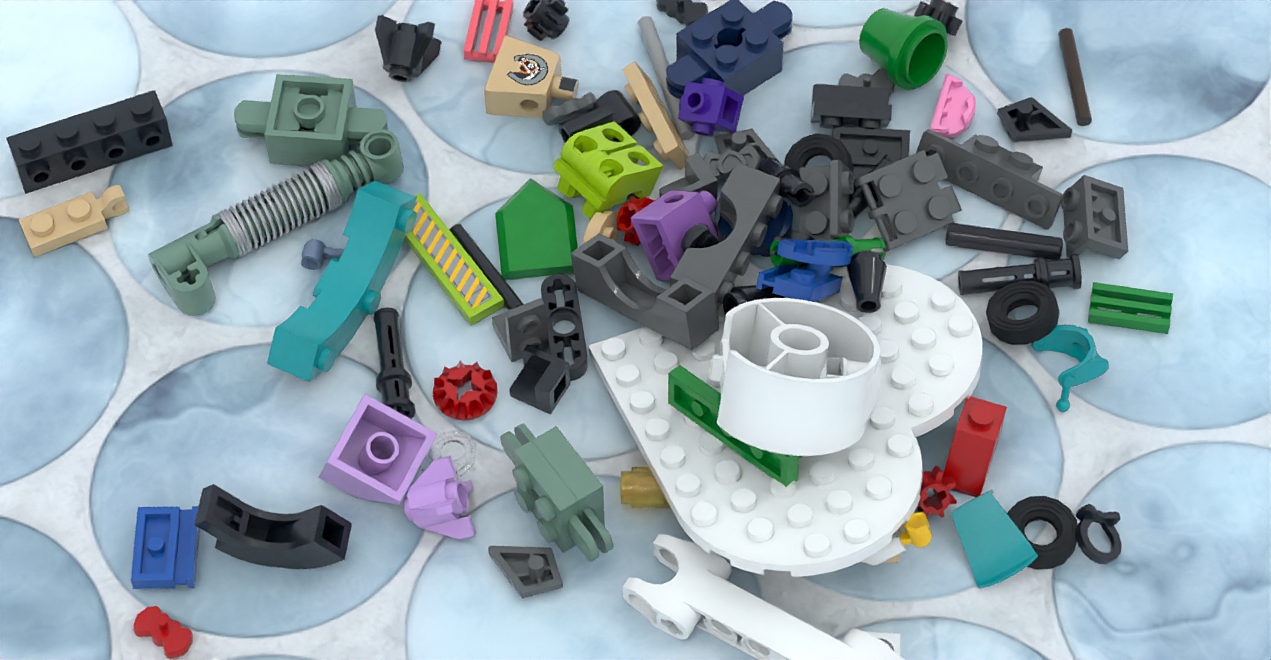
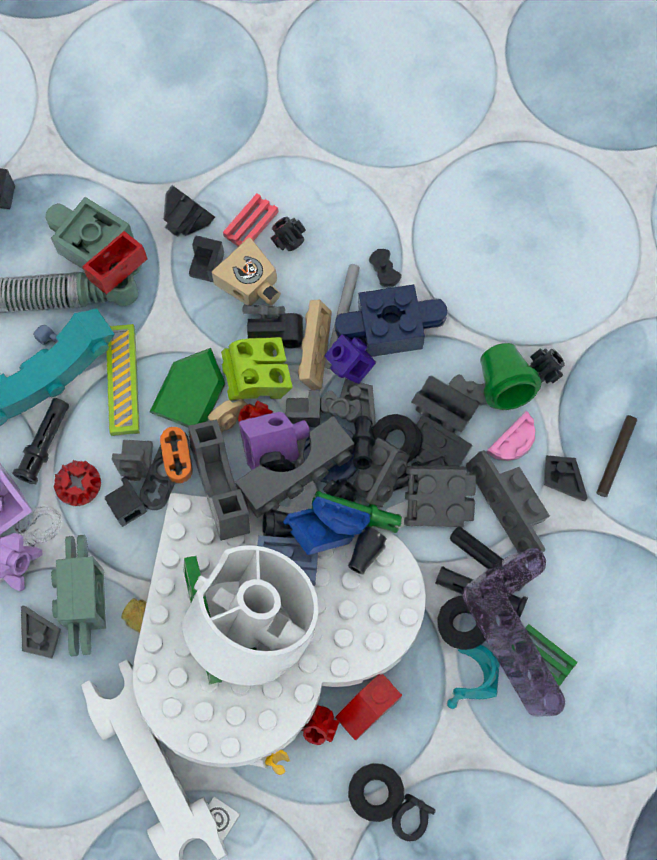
camera: 30 degrees right, 15 degrees up
(366, 107) = (123, 250): none -> red piece
(462, 86) = (207, 256): none -> black panel
(510, 298) = (143, 400): black bar -> none
(577, 293) = (170, 456): none -> orange beam
(991, 540) = (336, 783): teal piece -> none
(1086, 292) = (512, 630): none -> clear purple beam
(1094, 218) = (562, 576): dark grey bracket -> none

